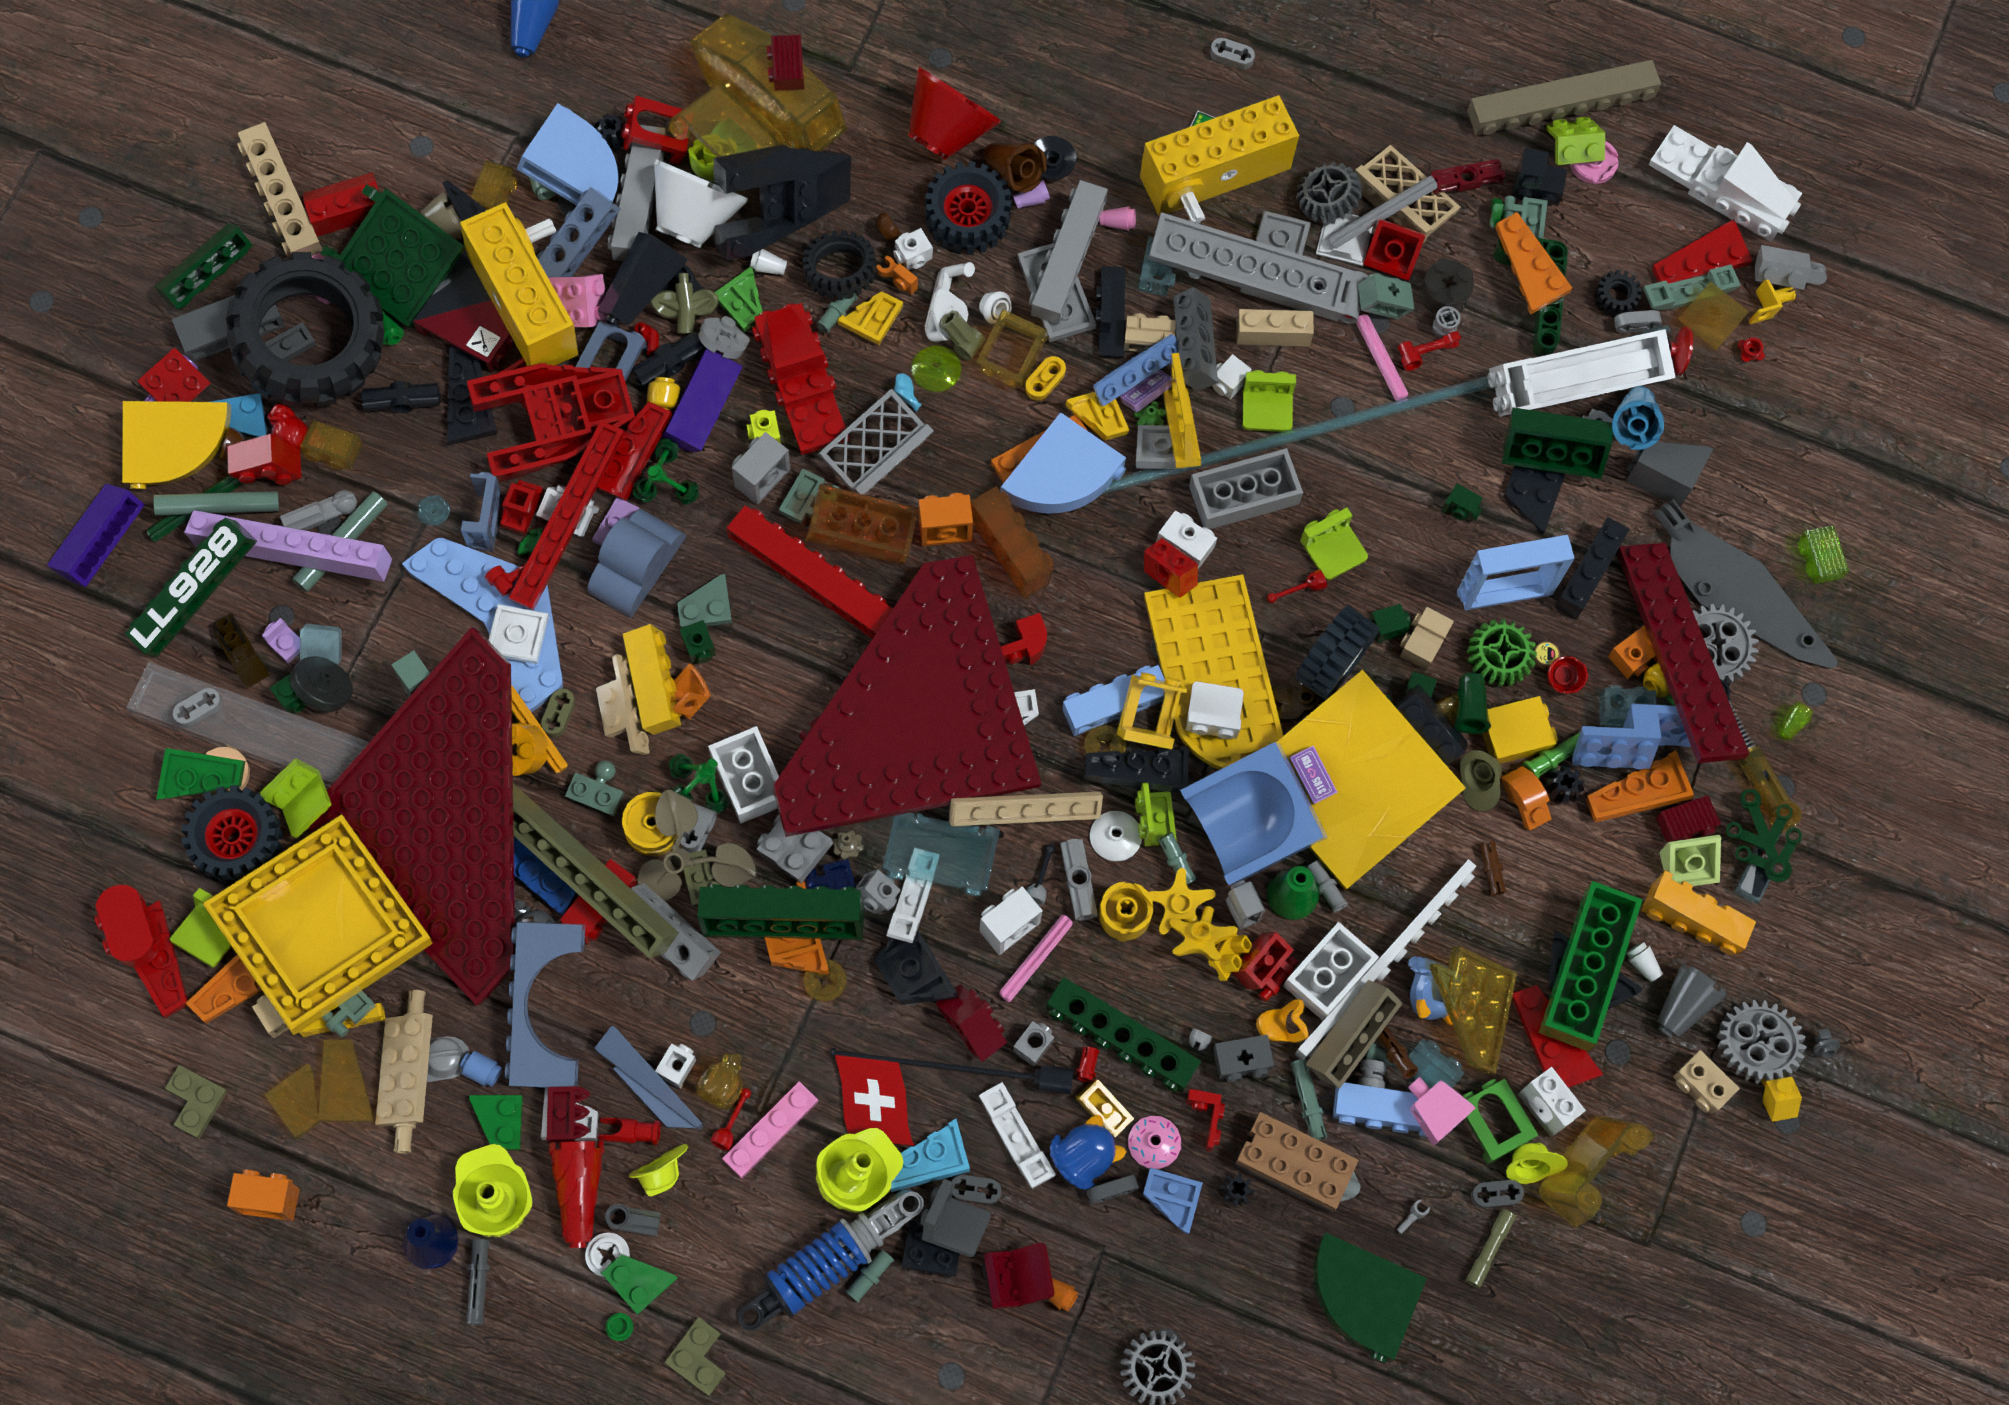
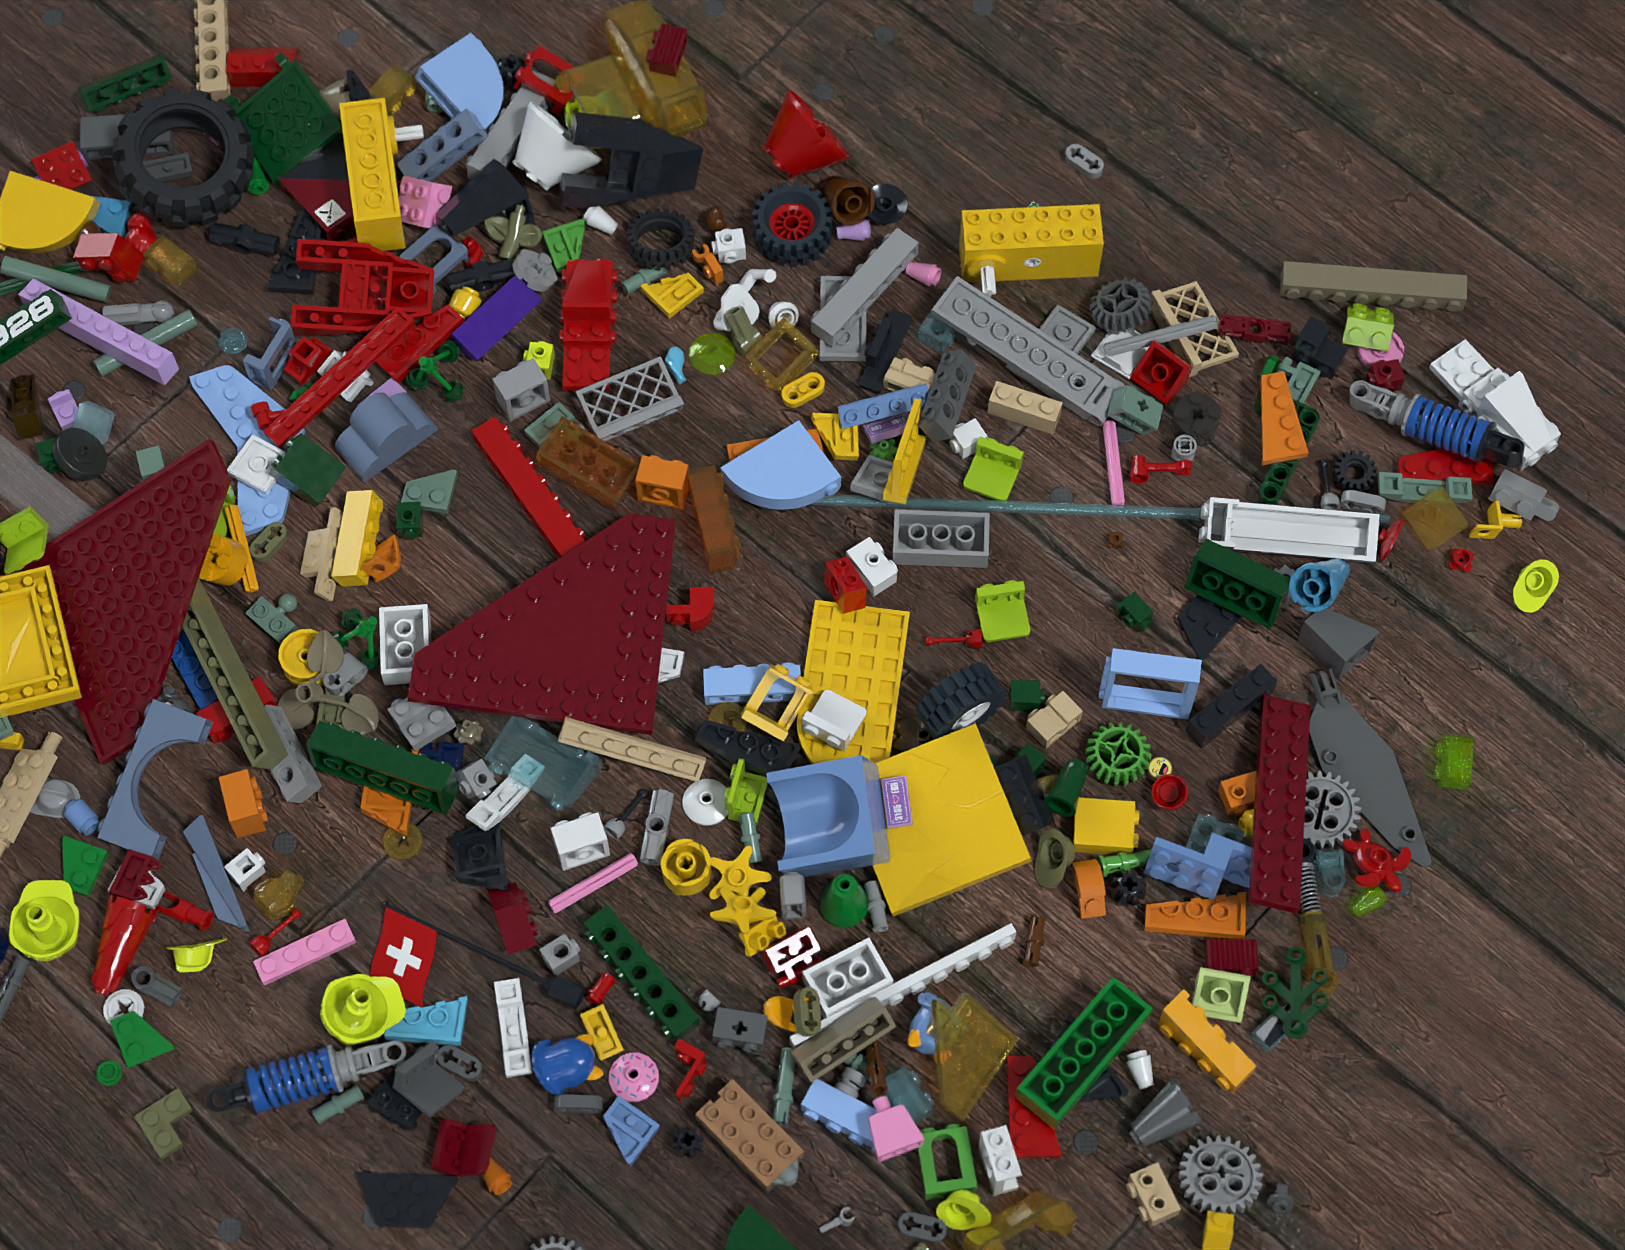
camera: 25 degrees right, 5 degrees down
(571, 624) = (306, 469): none -> dark green brick
(647, 998) = (243, 803): none -> orange brick
(976, 1347) = (405, 1198): none -> black wing
(1308, 1018) = (807, 1011): none -> olive beam
(1413, 435) = (1115, 540): none -> reddish brown piece
(1604, 330) = (1329, 500): none -> light grey hinge
(1612, 187) = (1386, 375): none -> dark red brick
(1670, 218) = (1438, 425): none -> piece
(1747, 698) = (1330, 867): none -> clear light blue piece
(1789, 679) = (1376, 862): none -> red animal
(1833, 352) = (1535, 585): none -> neon yellow piece

